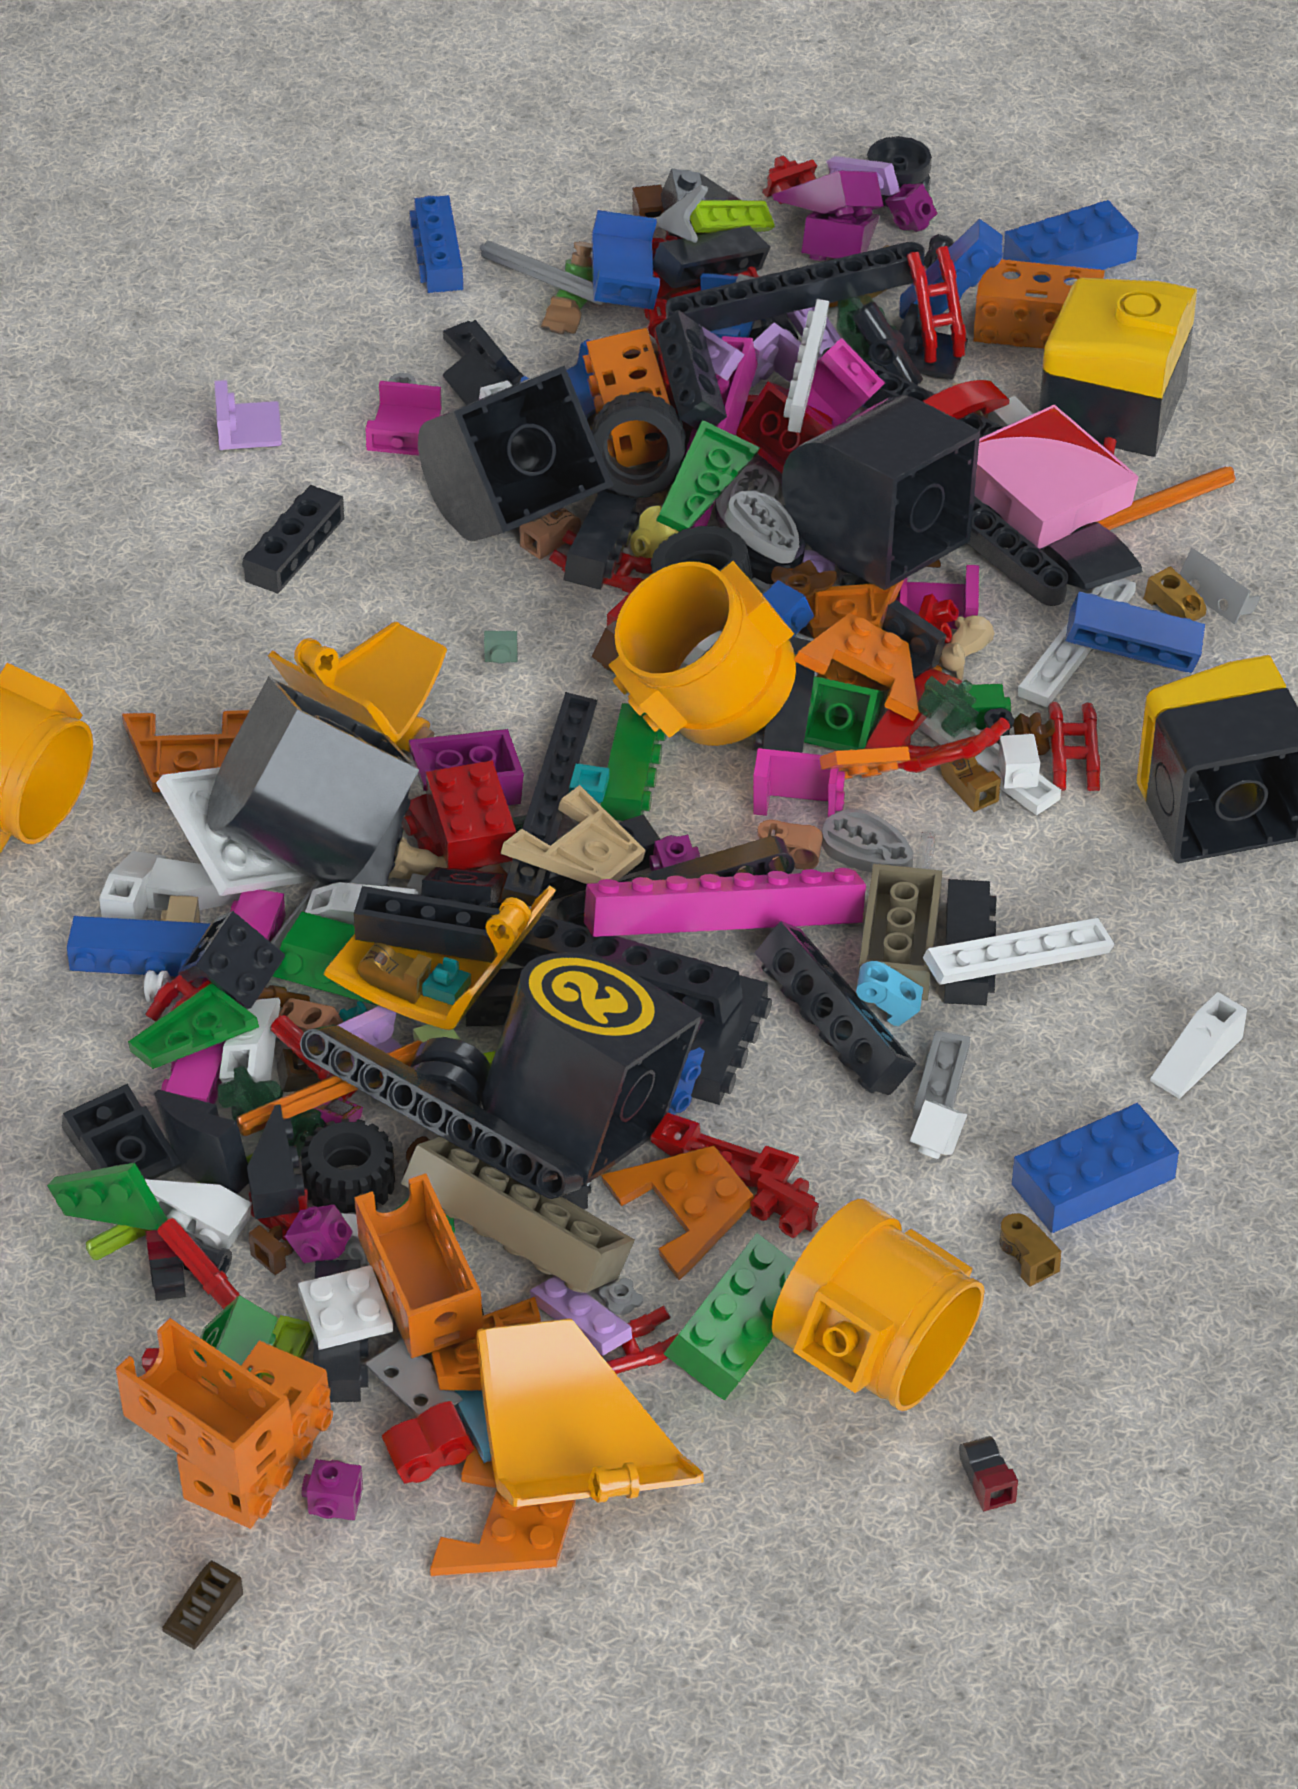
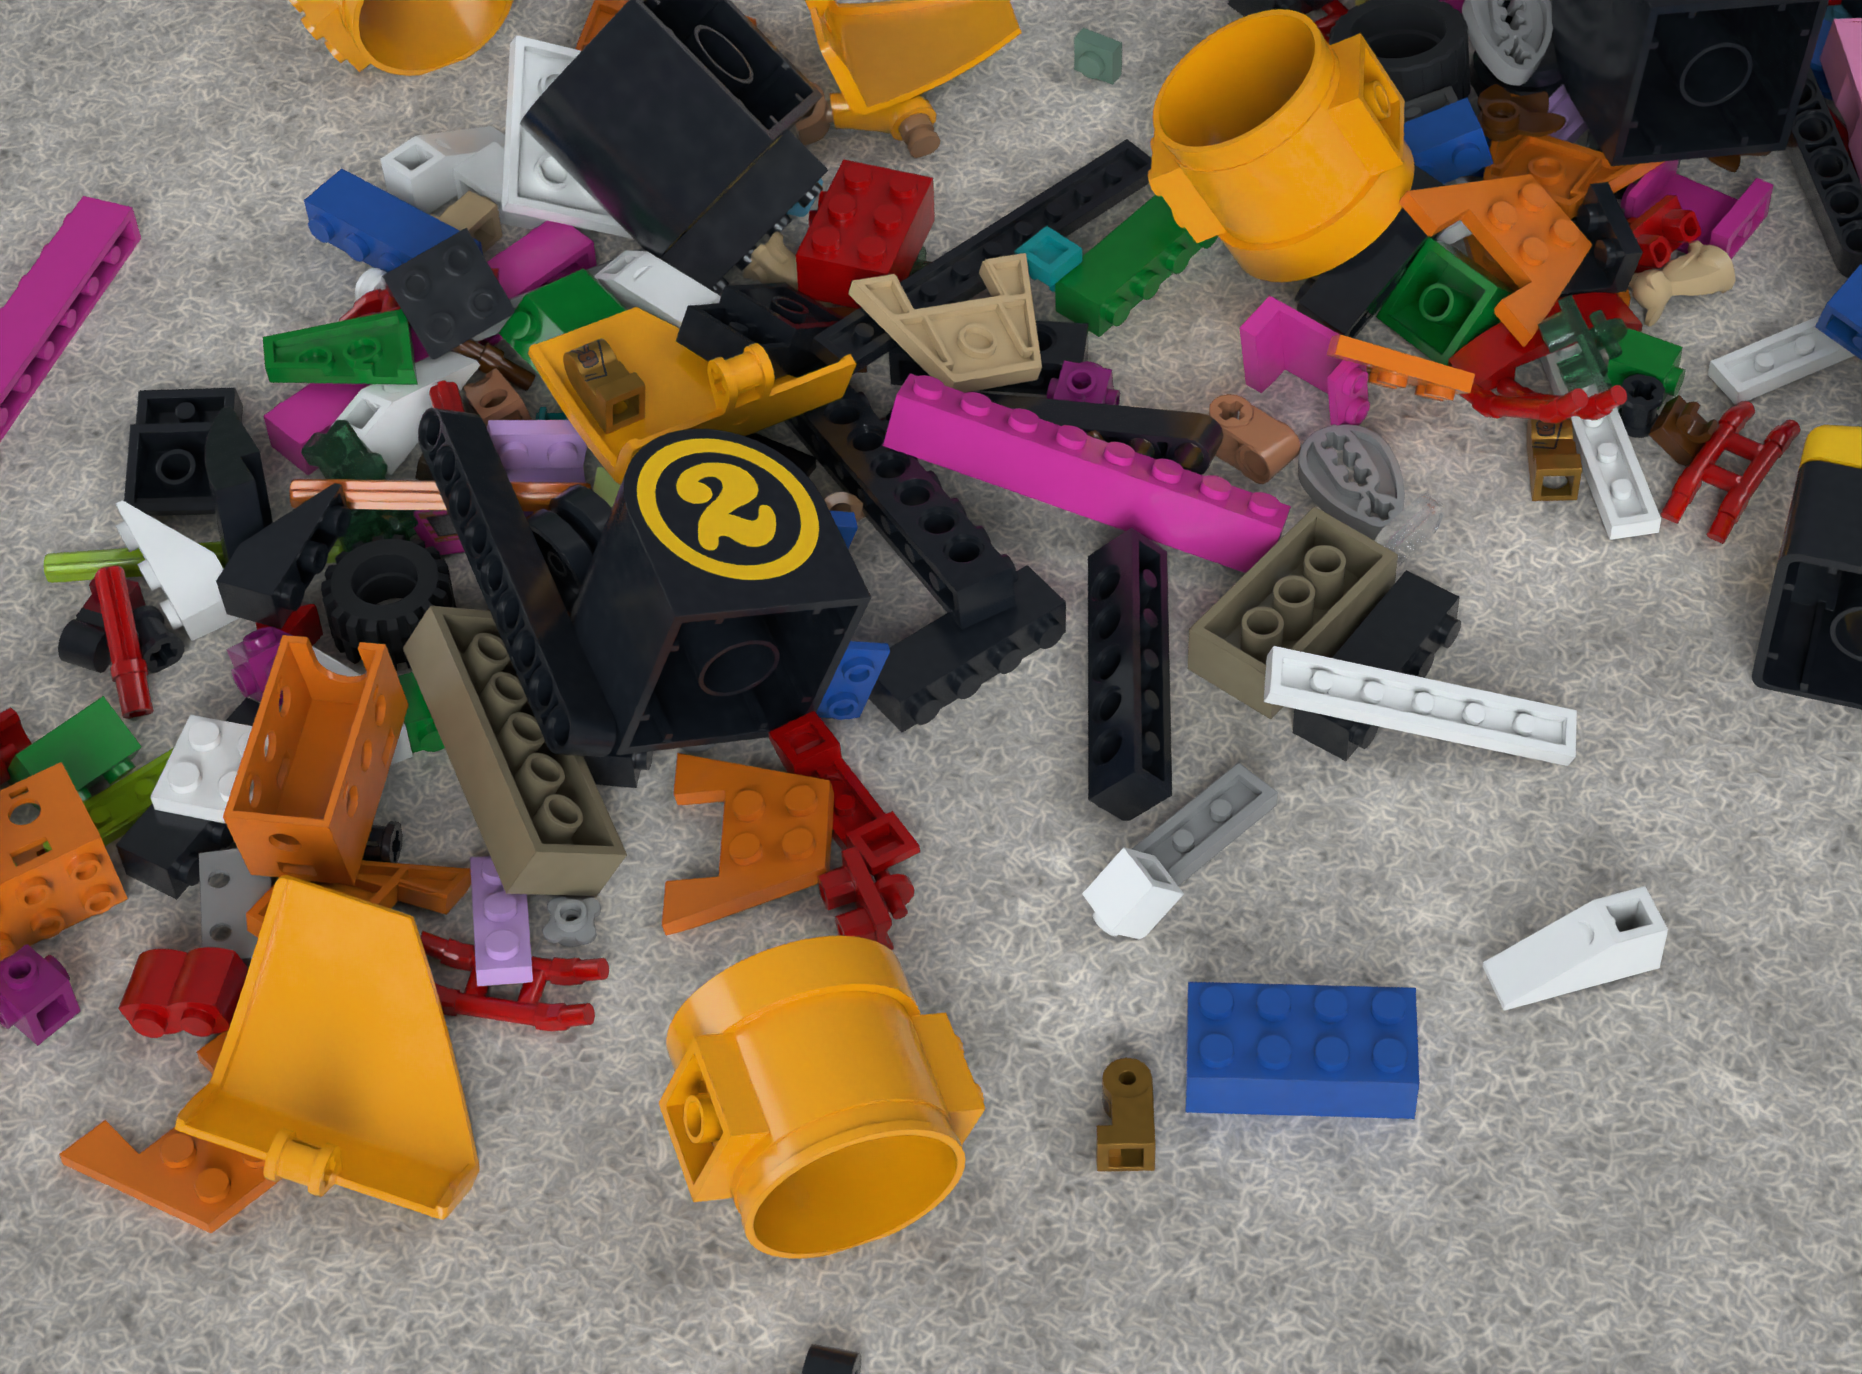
camera: 35 degrees right, 5 degrees up
(109, 1196) = (95, 511): green wing -> none
(268, 1249) = (219, 660): reddish brown tile -> none
(424, 924) = (660, 328): black brick -> none
(446, 982) = (653, 417): teal tile -> none
(472, 748) = (963, 174): magenta slope -> none
(733, 1319) = (618, 1029): green brick -> none
(889, 991) = (1209, 682): medium azure leg -> none
(1019, 761) = (1622, 456): white brick -> none

